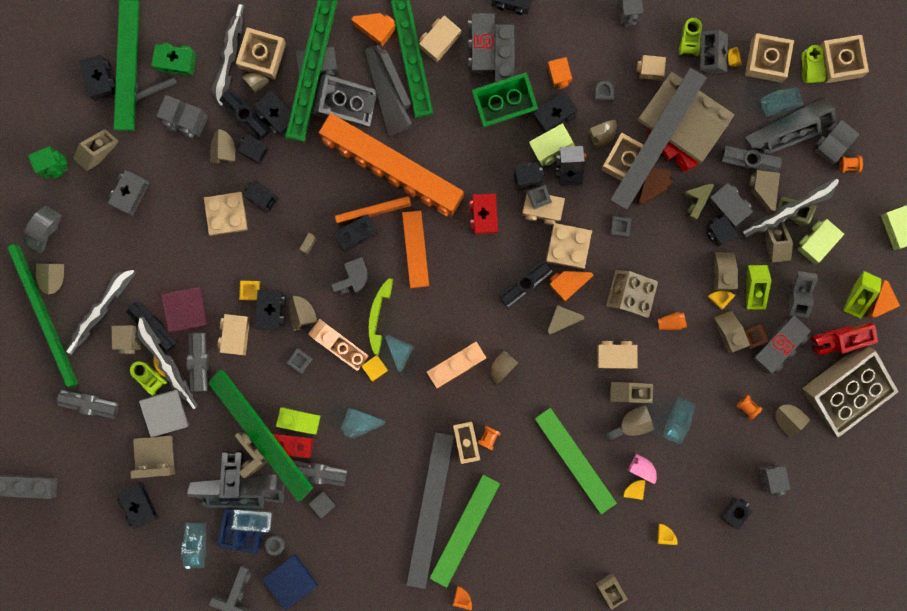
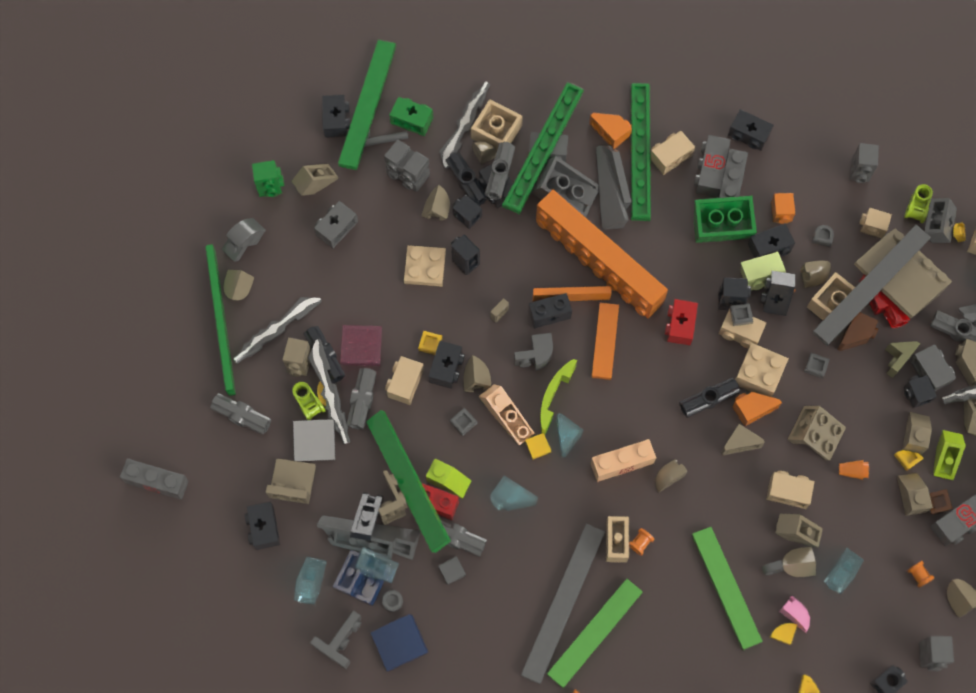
camera: 10 degrees right, 15 degrees down
(275, 90) = (502, 161): none -> dark grey piece

